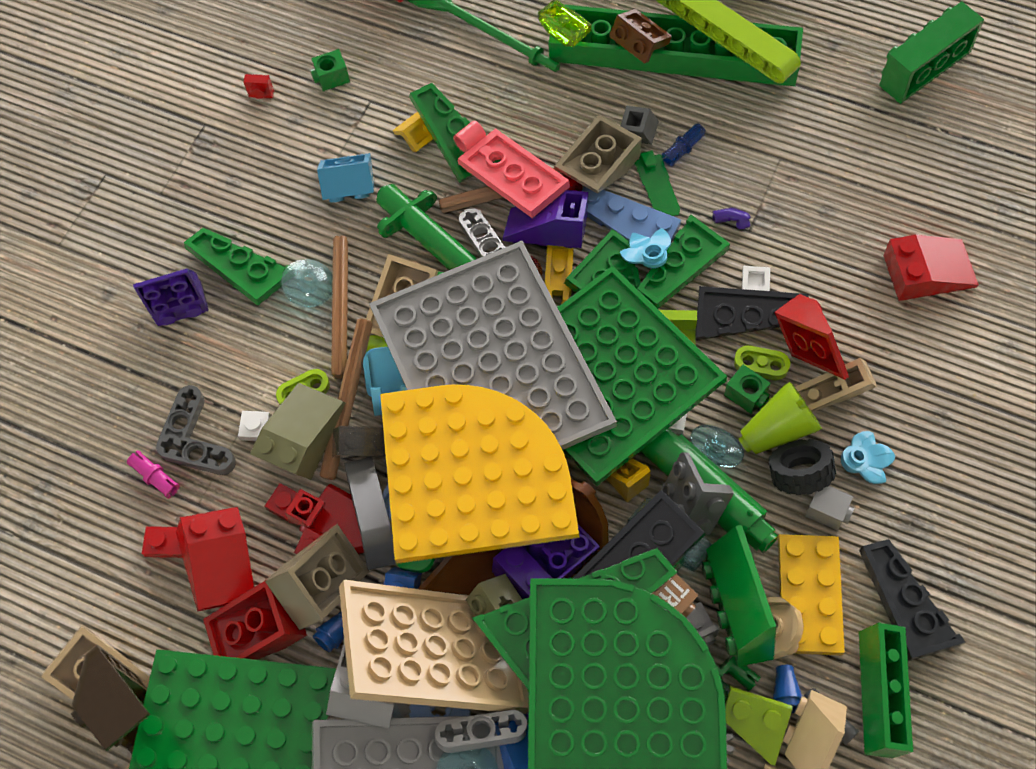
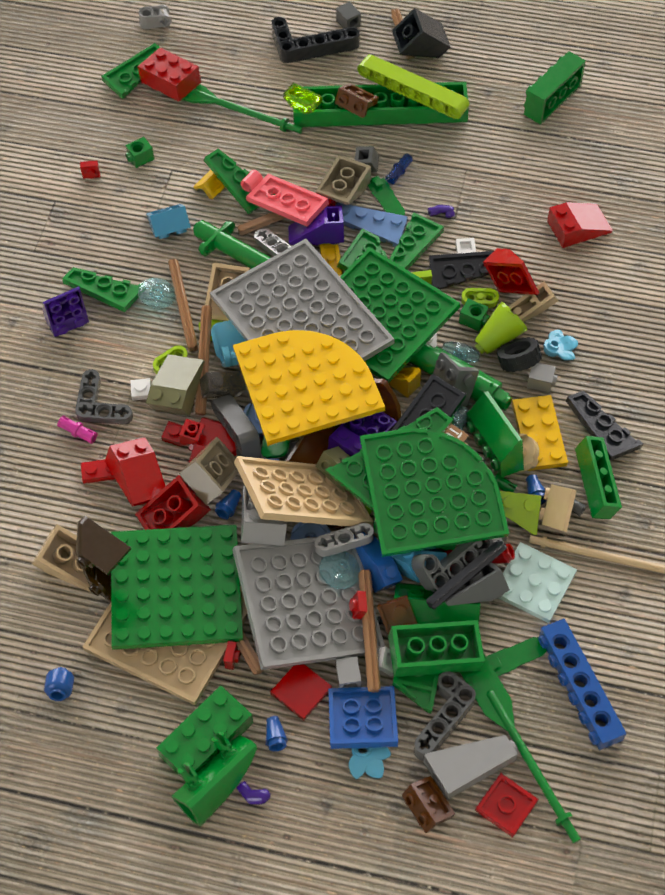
camera: 15 degrees left, 5 degrees down
(646, 250) = (392, 238): medium azure plate -> none

